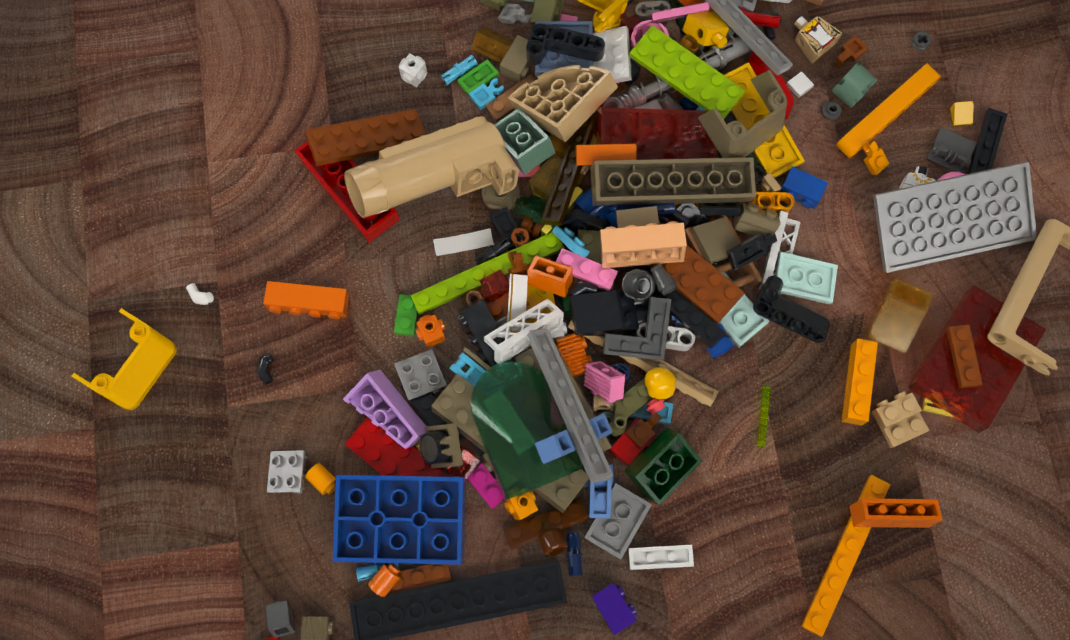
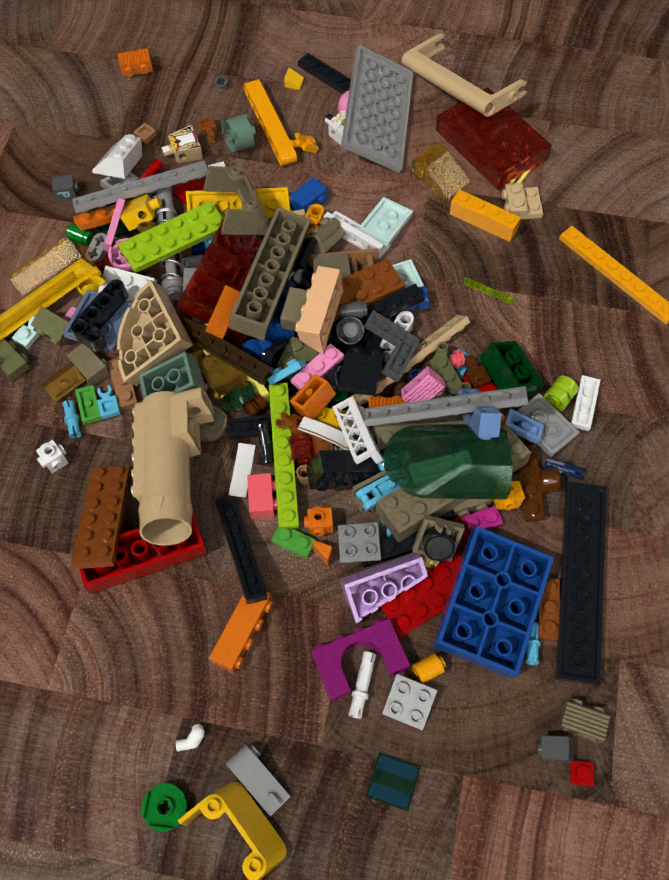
camera: 70 degrees left, 10 degrees down
(128, 290) = (153, 815): none -> green plate
(184, 352) = (257, 779): none -> light grey door
(214, 480) = (393, 781): none -> piece
(262, 368) = (294, 694): black arm -> none
(279, 425) = (360, 693): none -> white pin
(302, 387) = (379, 637): none -> magenta arch
(376, 269) = (241, 550): none -> black plate
(385, 579) = (546, 633): orange brick -> none
(402, 346) = (323, 550): none -> orange slope
(439, 267) = (261, 495): none -> coral brick
(511, 13) = (40, 354): light grey plate -> none
(518, 231) = (262, 410): dark orange bush -> none
(614, 608) = (620, 451): dark purple brick -> none
(660, 383) = (440, 346): yellow hair -> none
(660, 527) = (561, 392): none -> lime wheel
(750, 250) = (350, 245): black hinge -> none
(789, 314) = (401, 249): black beam -> none
(831, 115) = (251, 158): dark grey plate -> none
(895, 513) = (599, 225): orange brick -> none
(951, 151) = (321, 96): dark grey hinge -> none
(964, 356) = (492, 137): dark orange plate -> none

